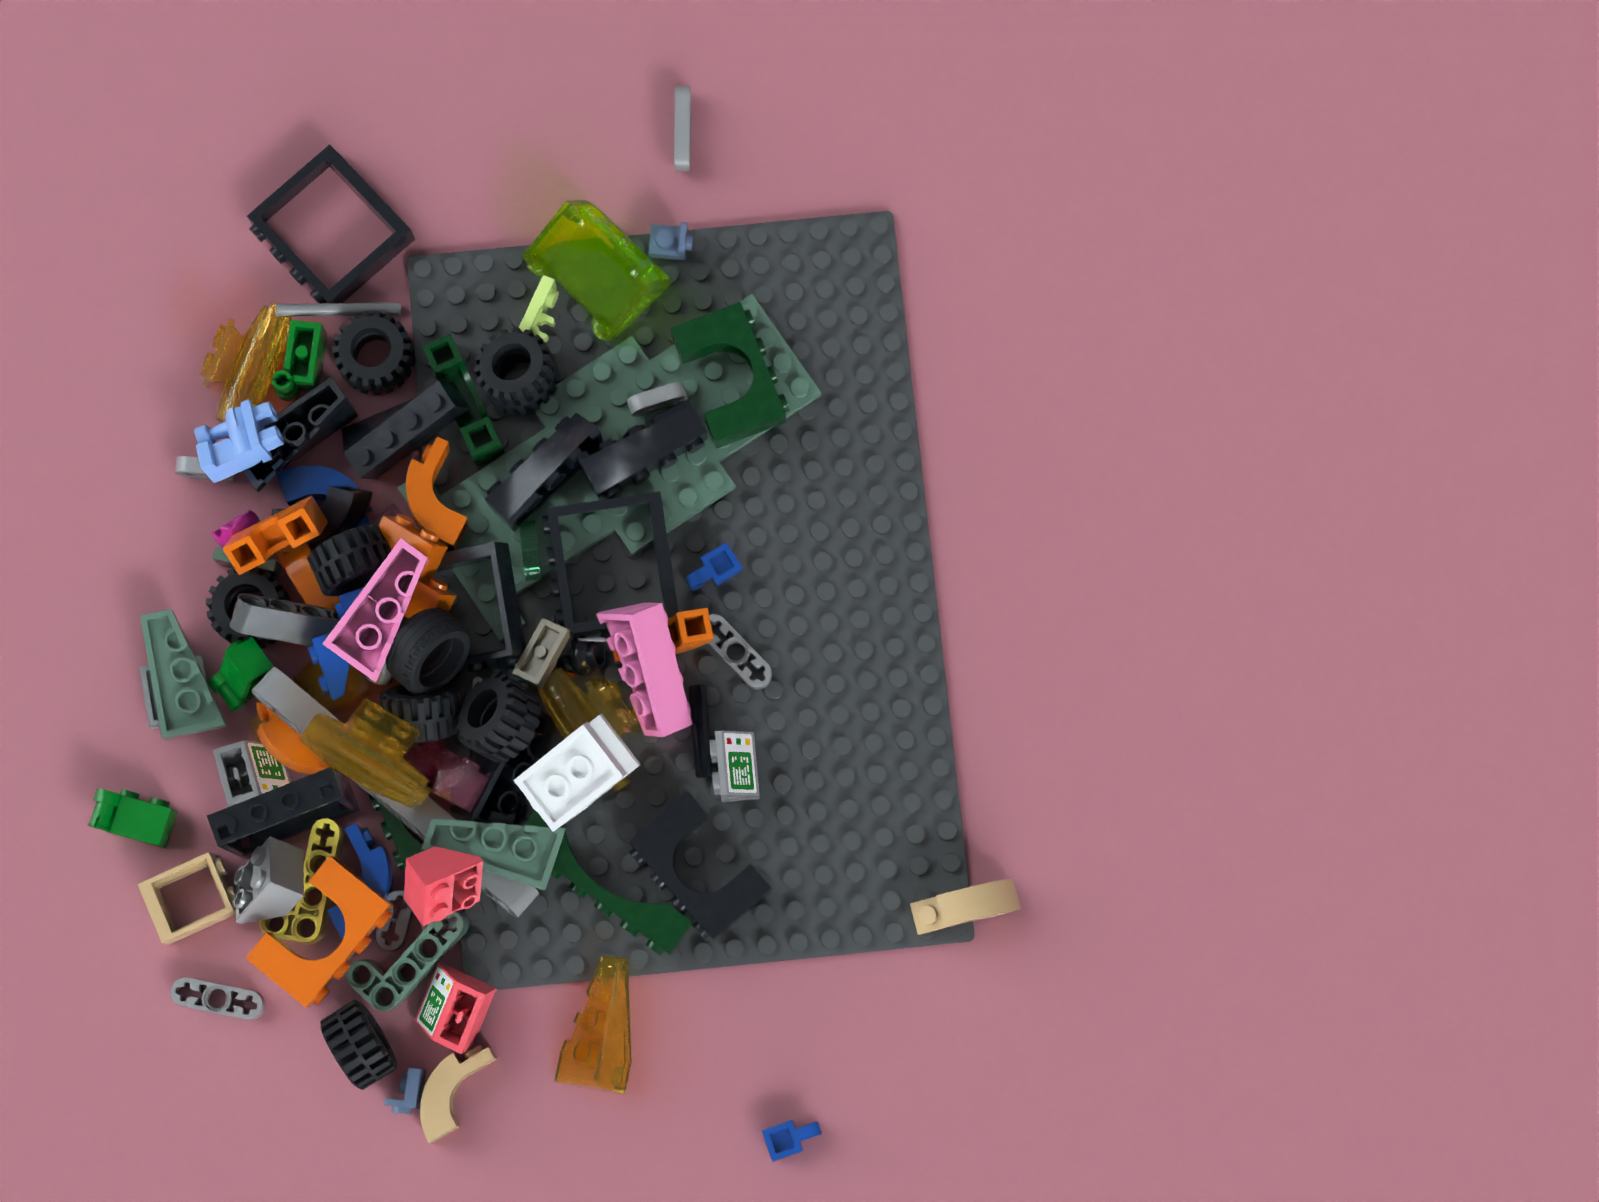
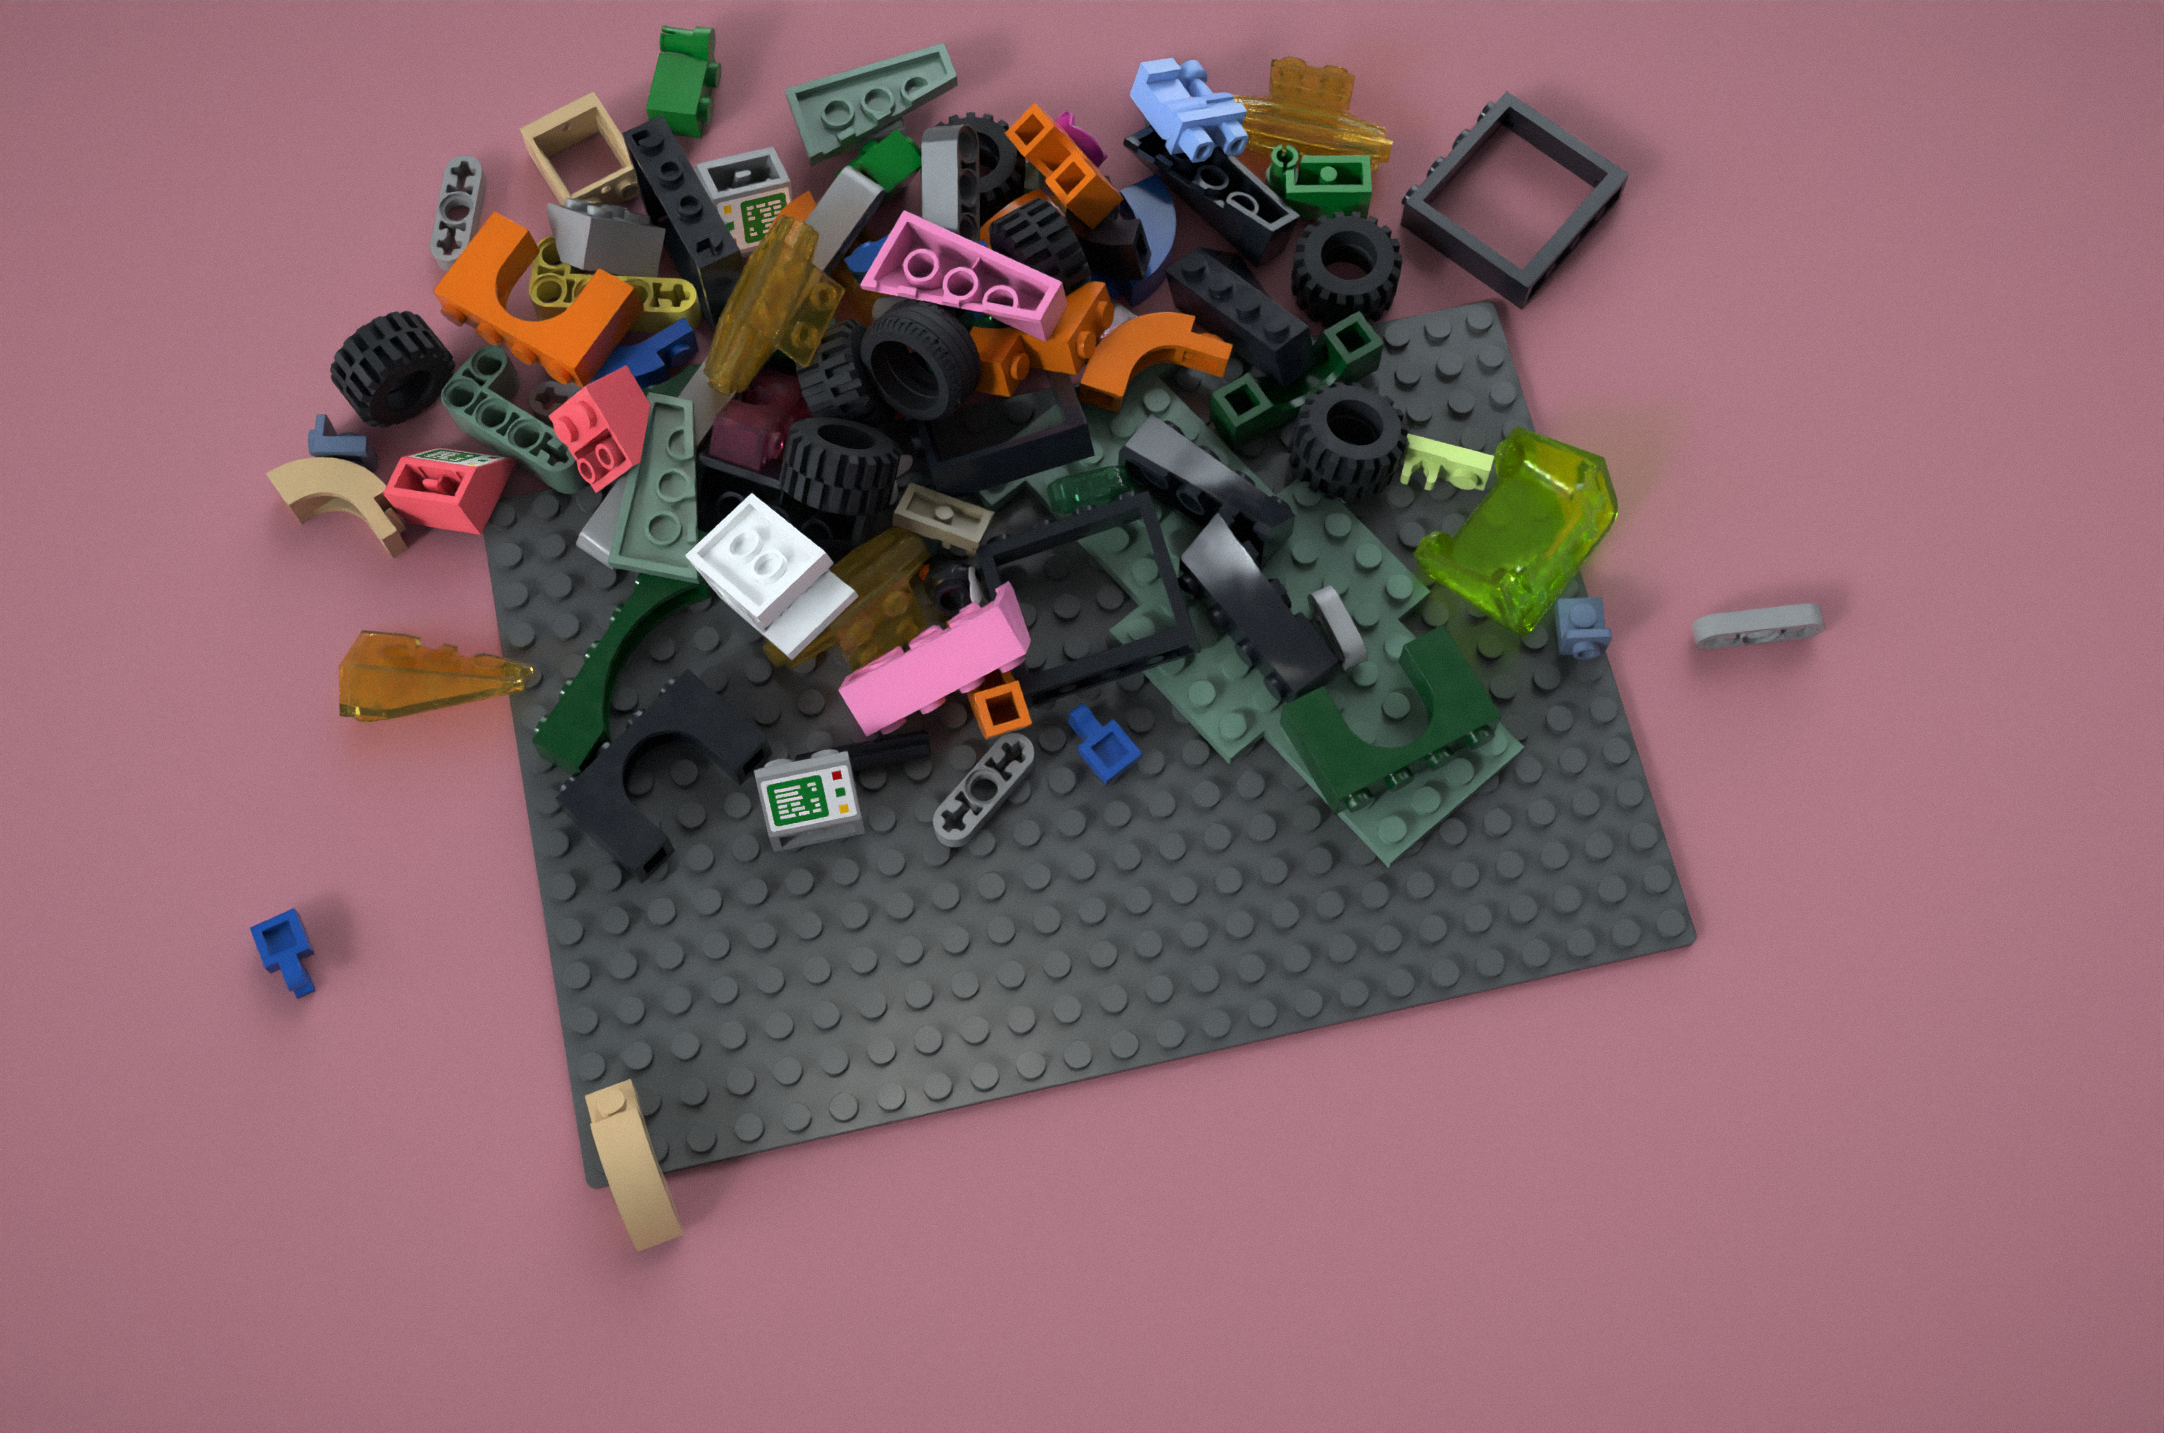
camera: 85 degrees right, 10 degrees down
(336, 309) = (1399, 218): light grey bar -> none

